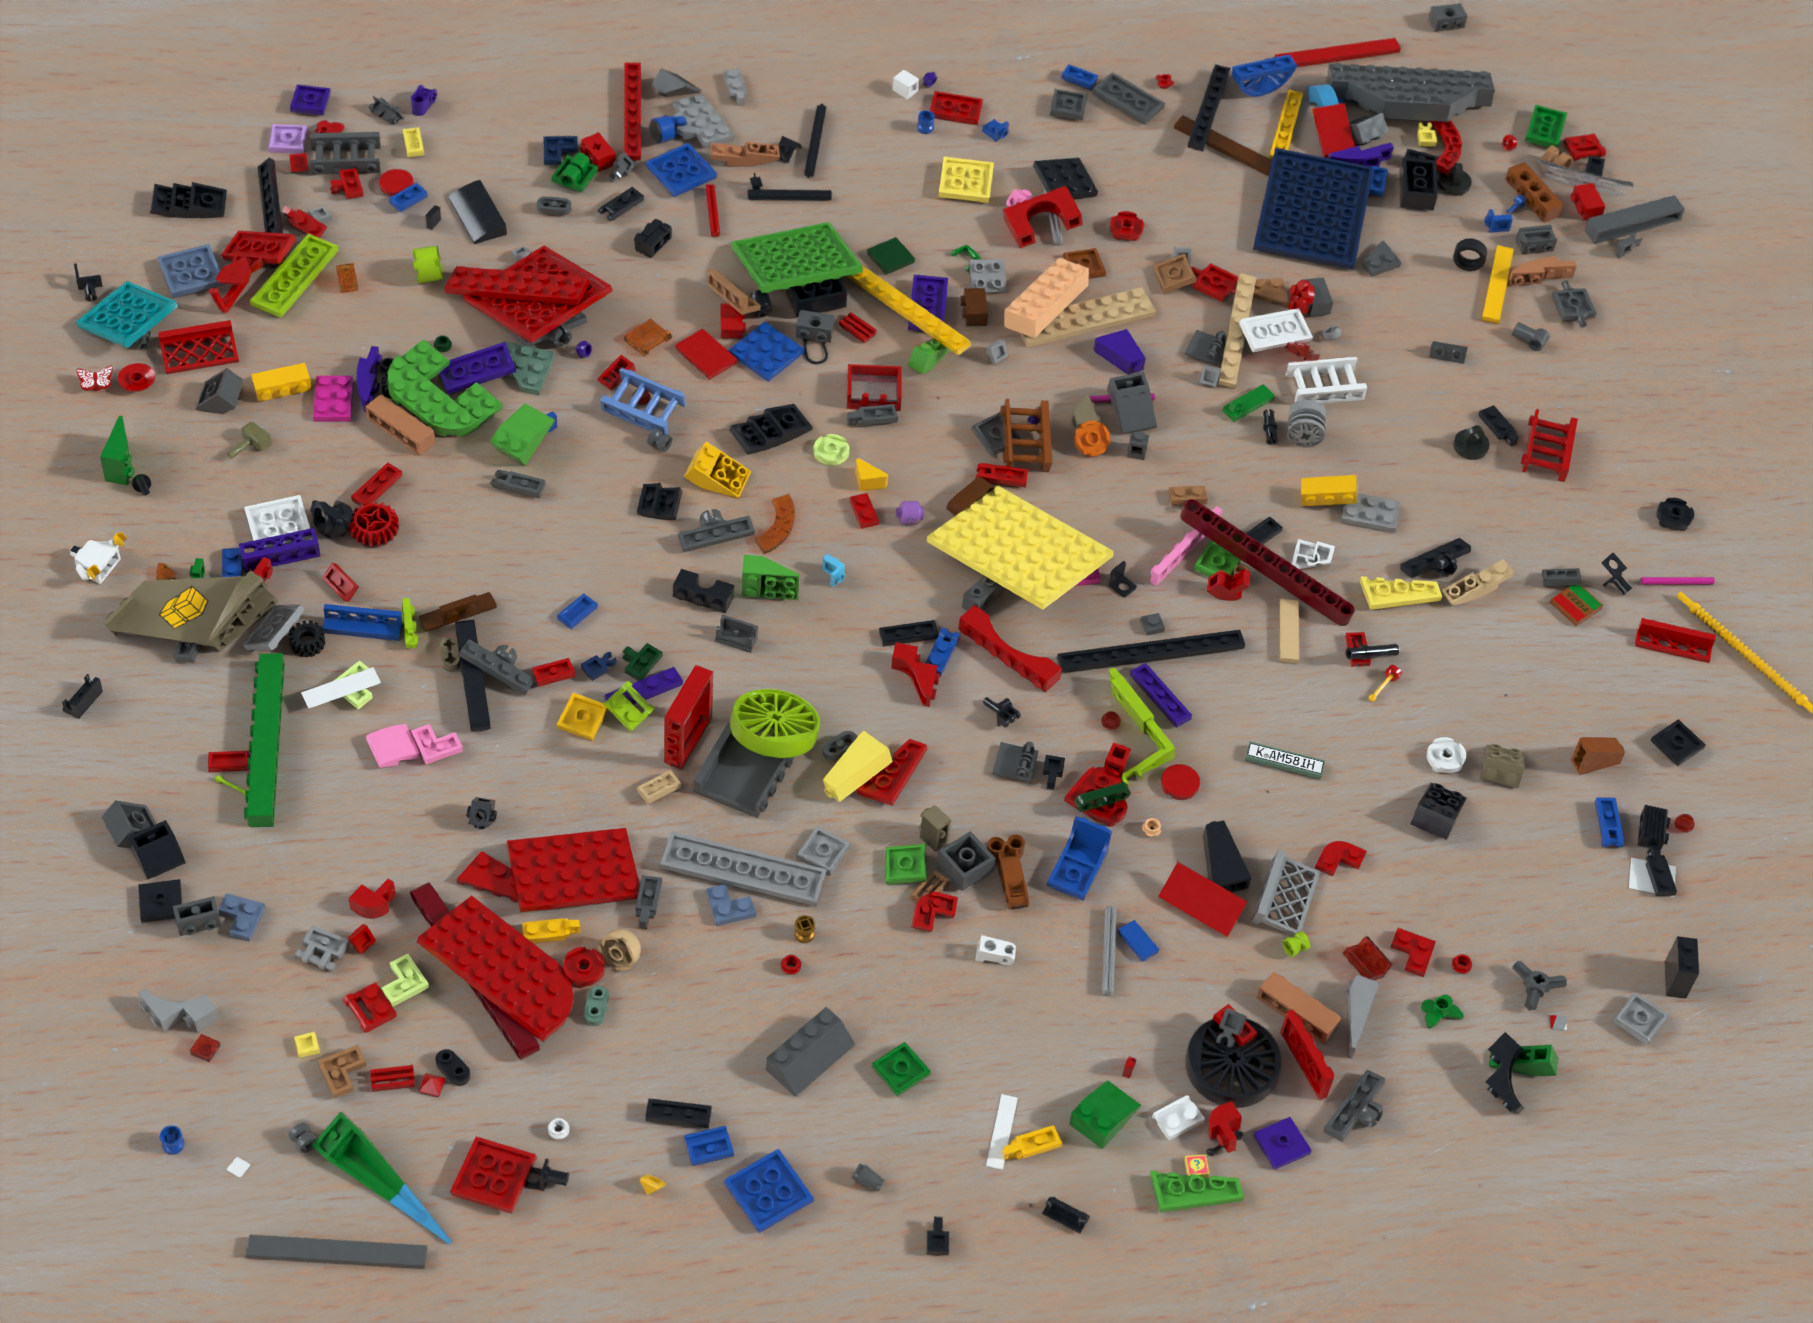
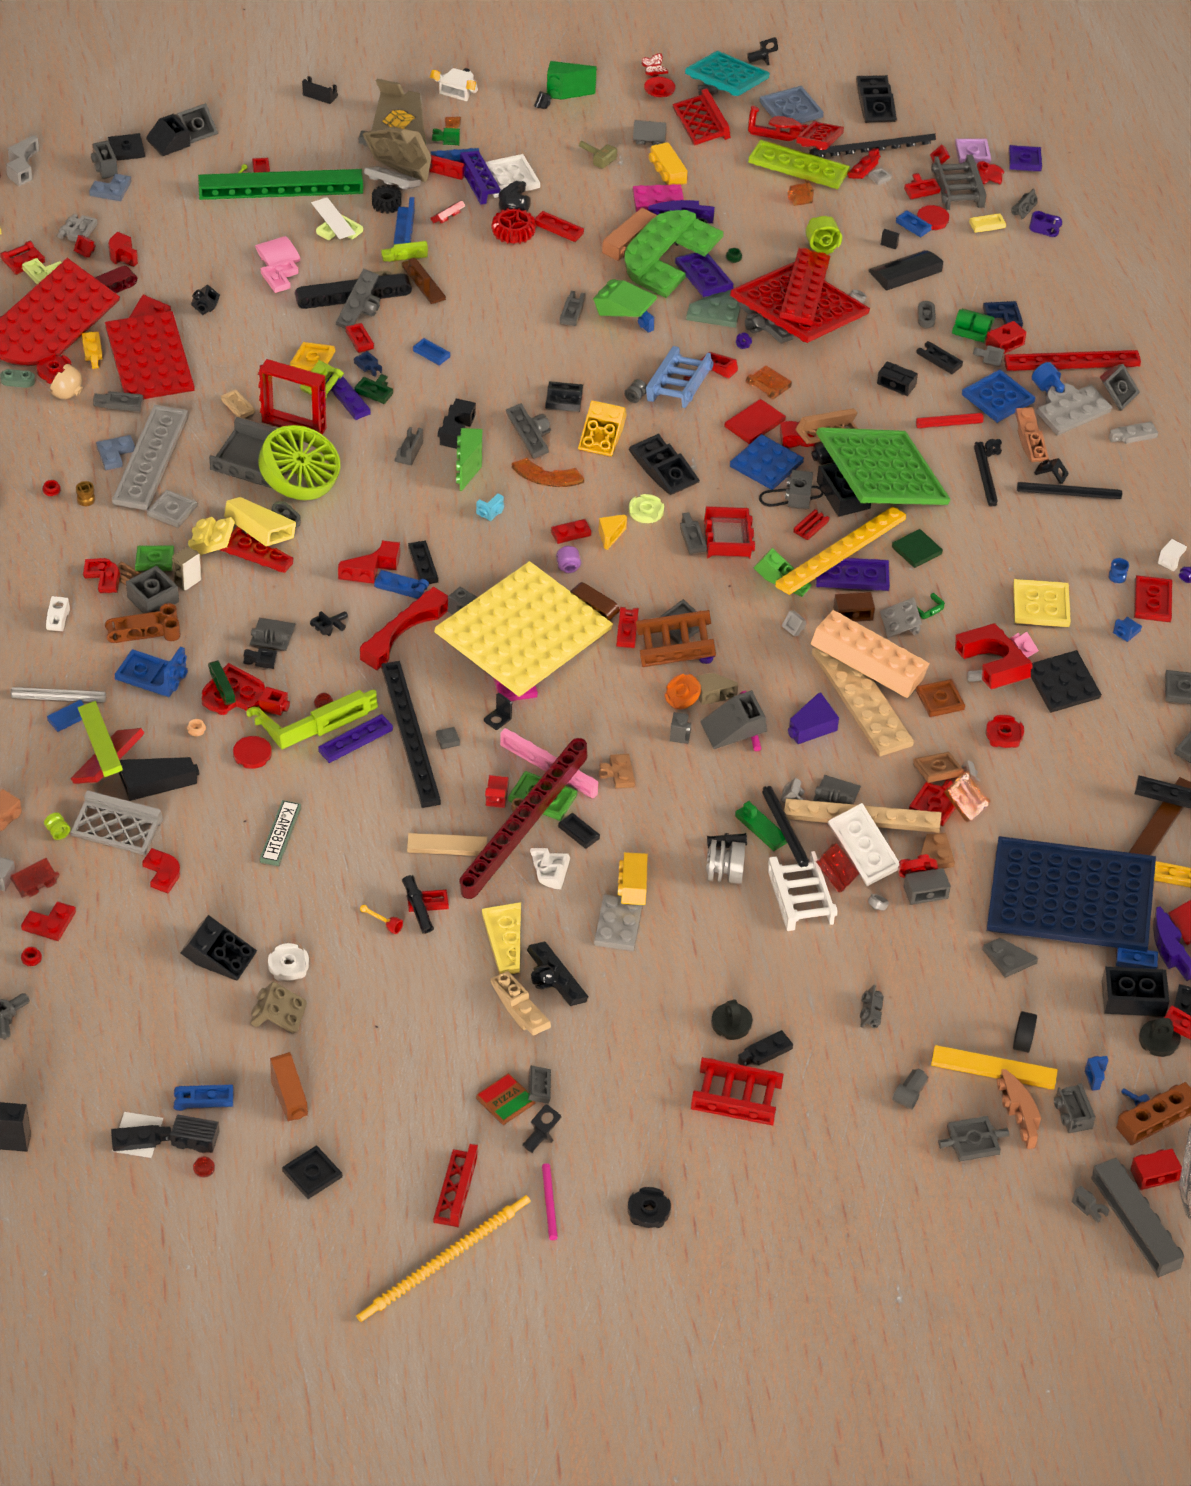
camera: 90 degrees right, 5 degrees down
(878, 808) = (211, 534): none -> light yellow plate
(1191, 899) = (100, 739): none -> lime tile
(1214, 257) = (963, 799): none -> clear orange plate
(1255, 382) = (785, 826): none -> black axle

